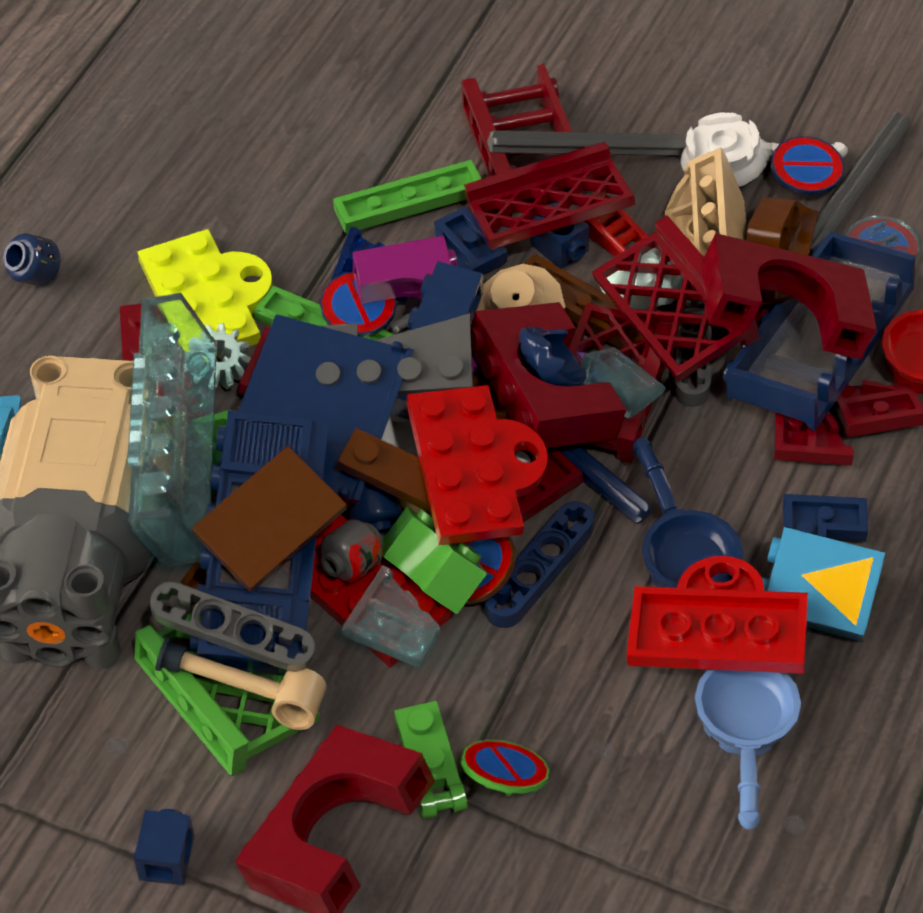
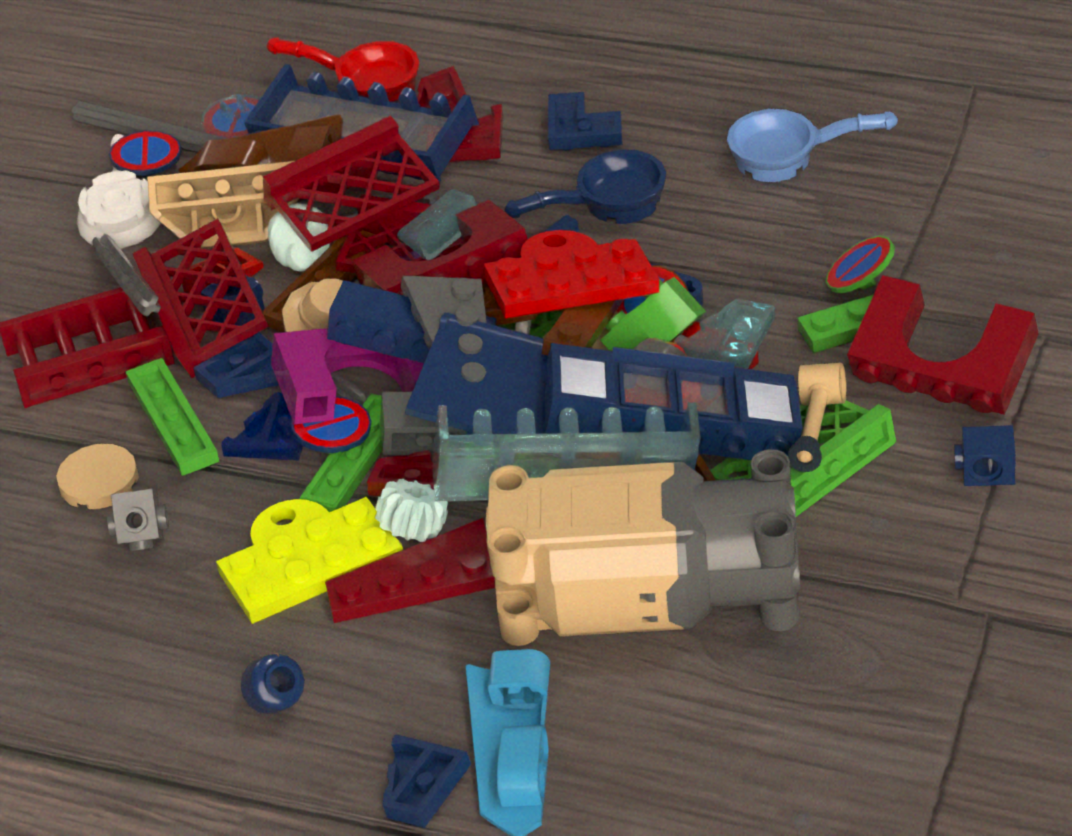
camera: 90 degrees left, 10 degrees down
(235, 620) = (777, 398): dark grey beam -> none
(264, 168) = (126, 507): none -> brick
(269, 519) = (664, 372): reddish brown tile -> none
(348, 152) = (95, 474): none -> tan tile
(549, 357) = (432, 244): dark blue hair -> none
(718, 623) = (702, 147): red plate -> none
(832, 291) = (368, 95): dark red arch -> none
(835, 575) = (649, 103): dark azure brick -> none

